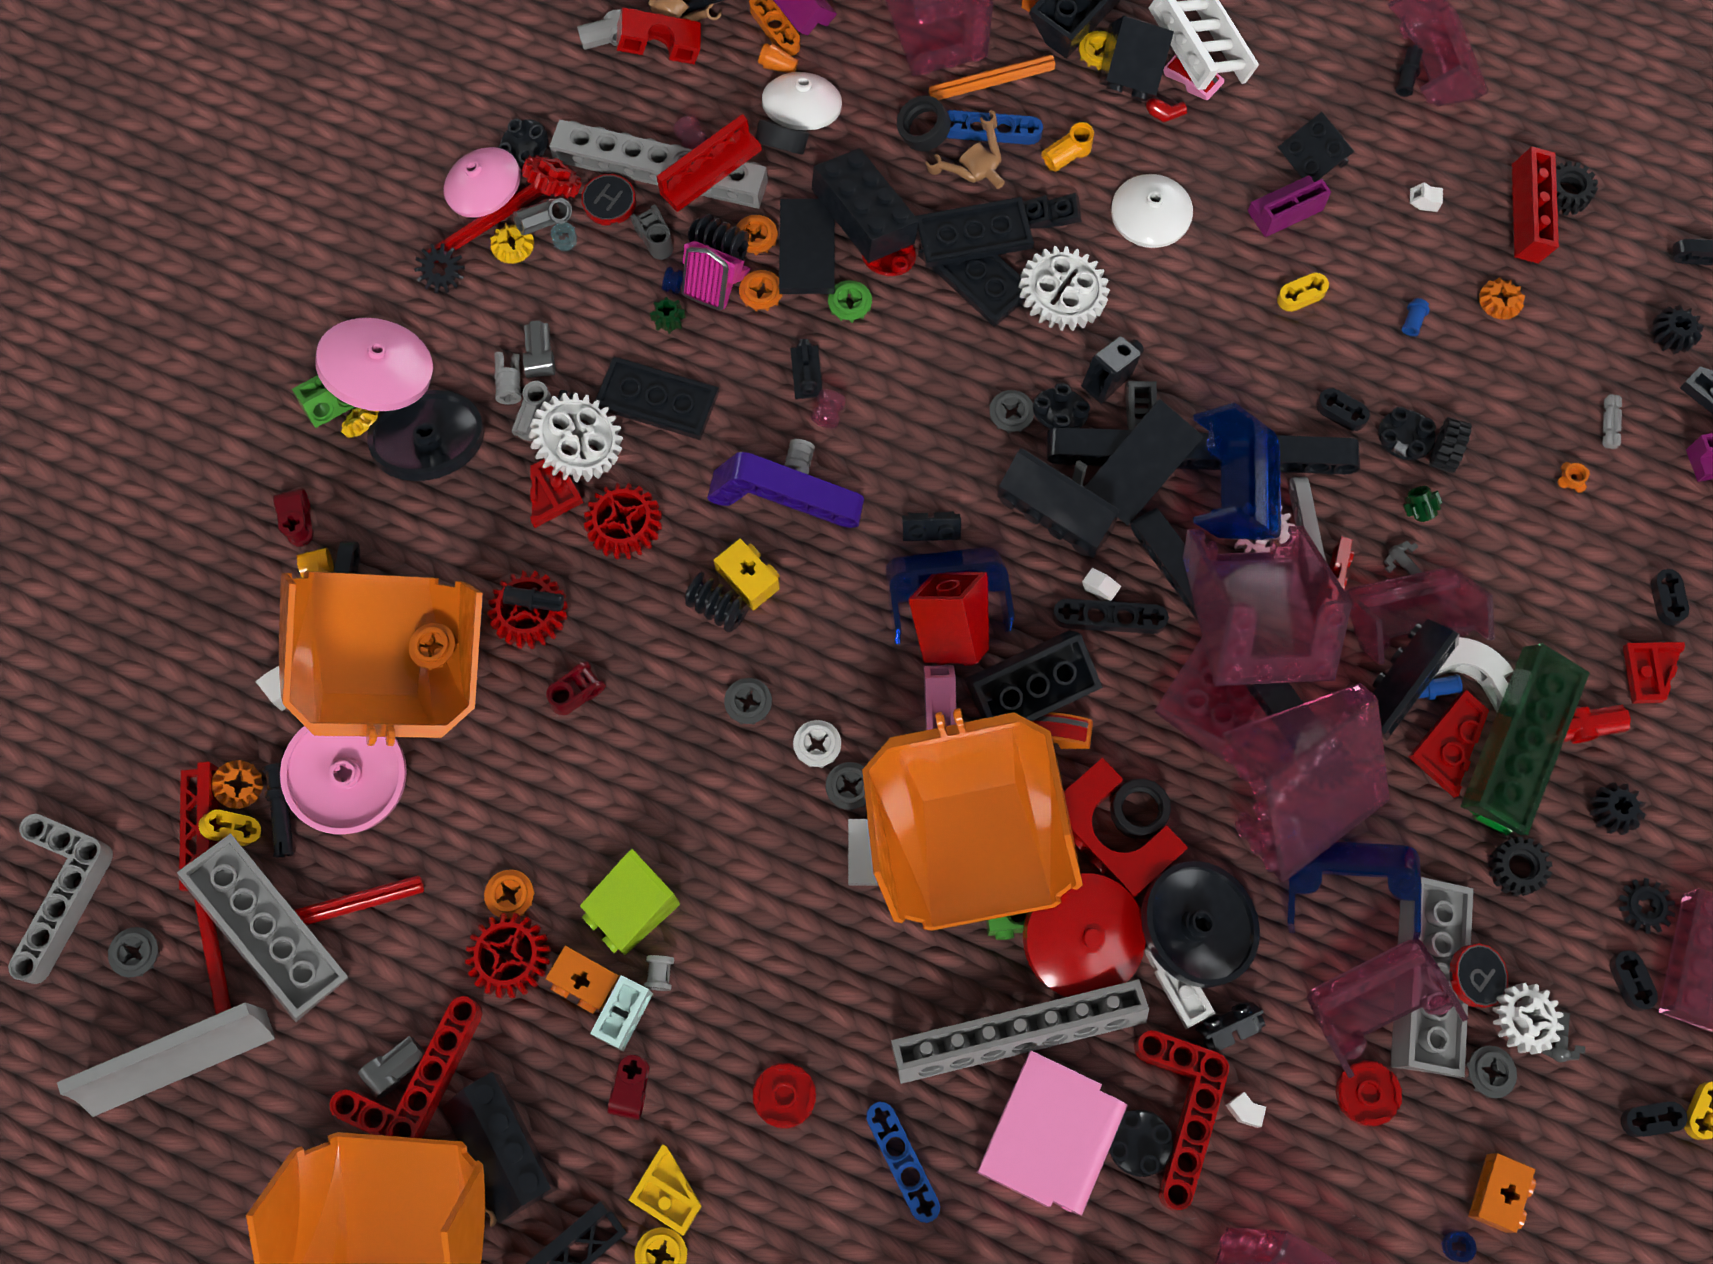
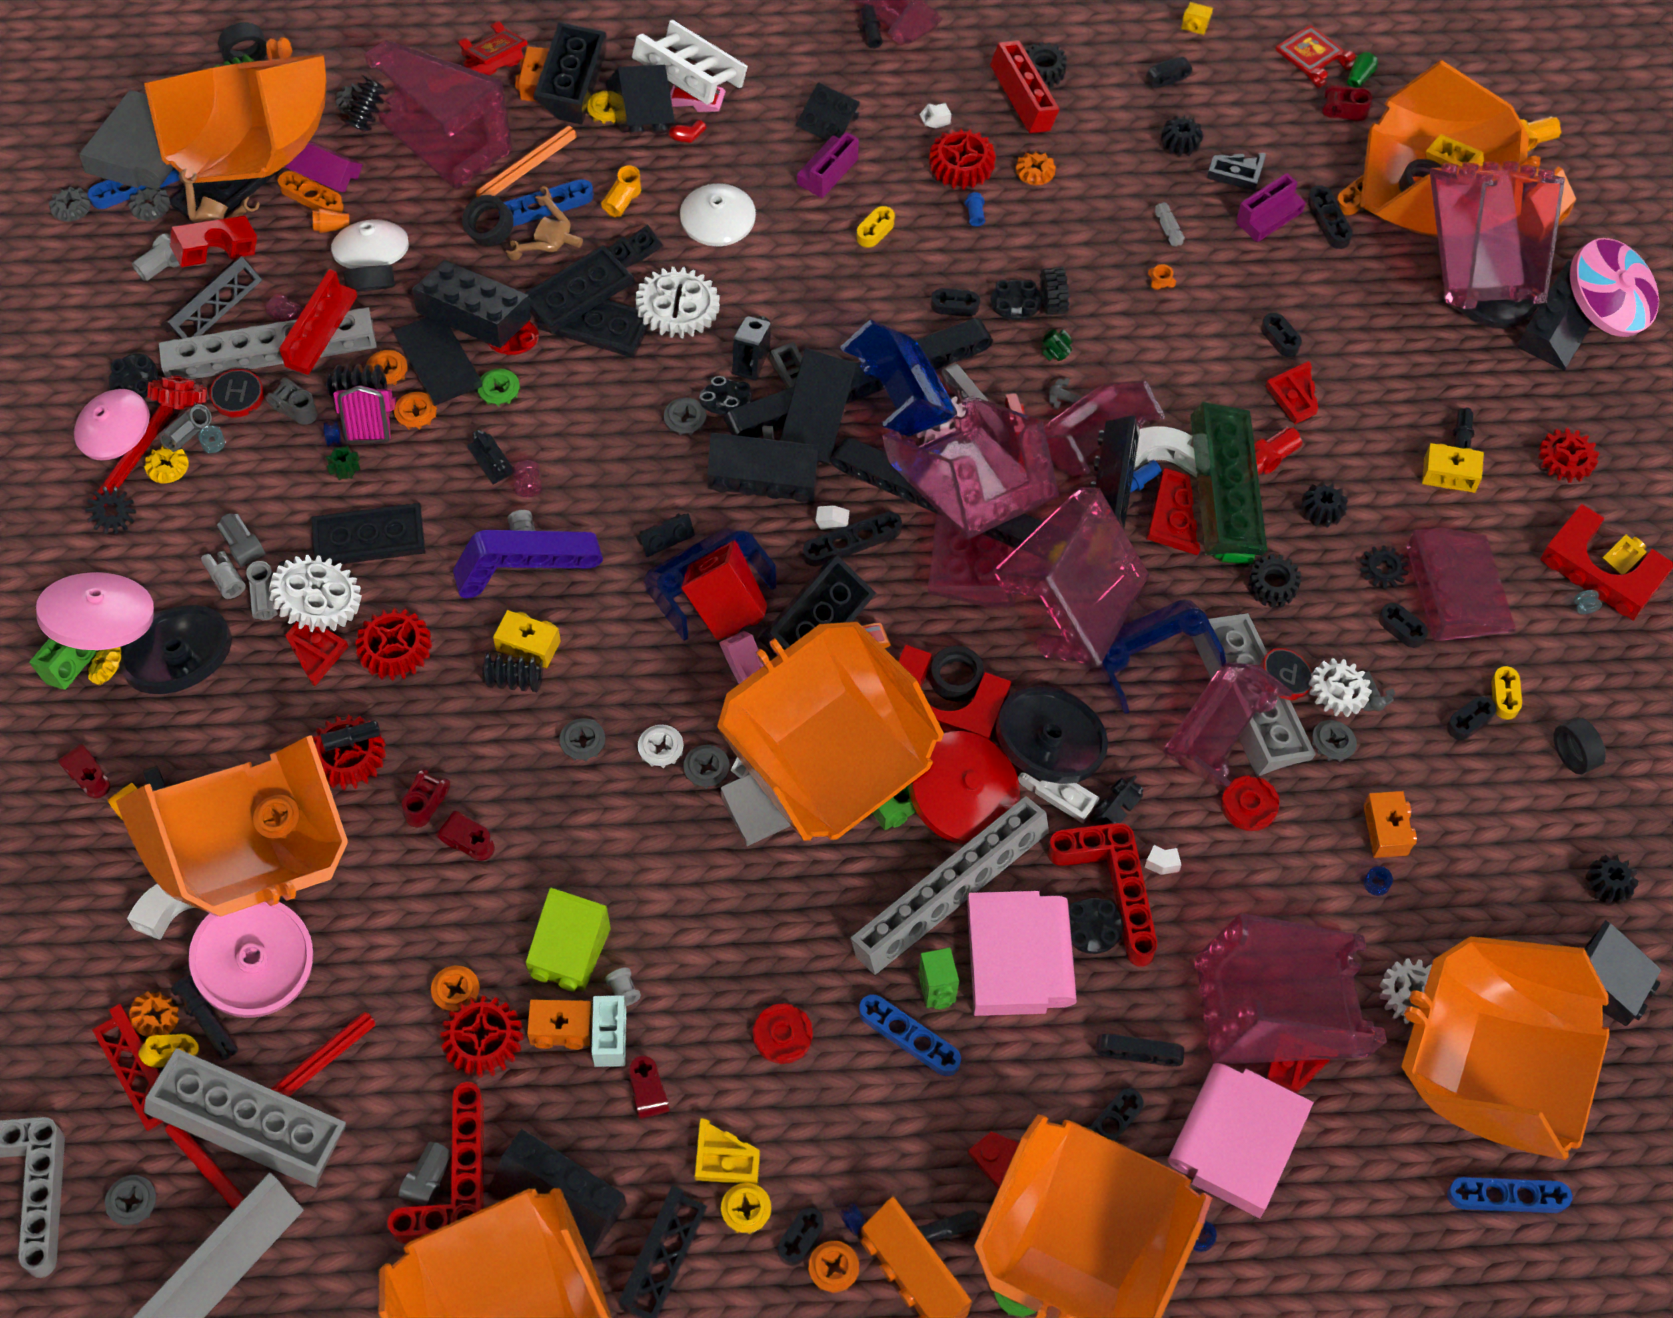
camera: 30 degrees left, 10 degrees down
(591, 745) = (466, 836): none -> dark red piece
(630, 85) = (206, 292): none -> black fence
(956, 1125) = (938, 978): none -> bright green brick
(1437, 270) = (962, 158): none -> red gear

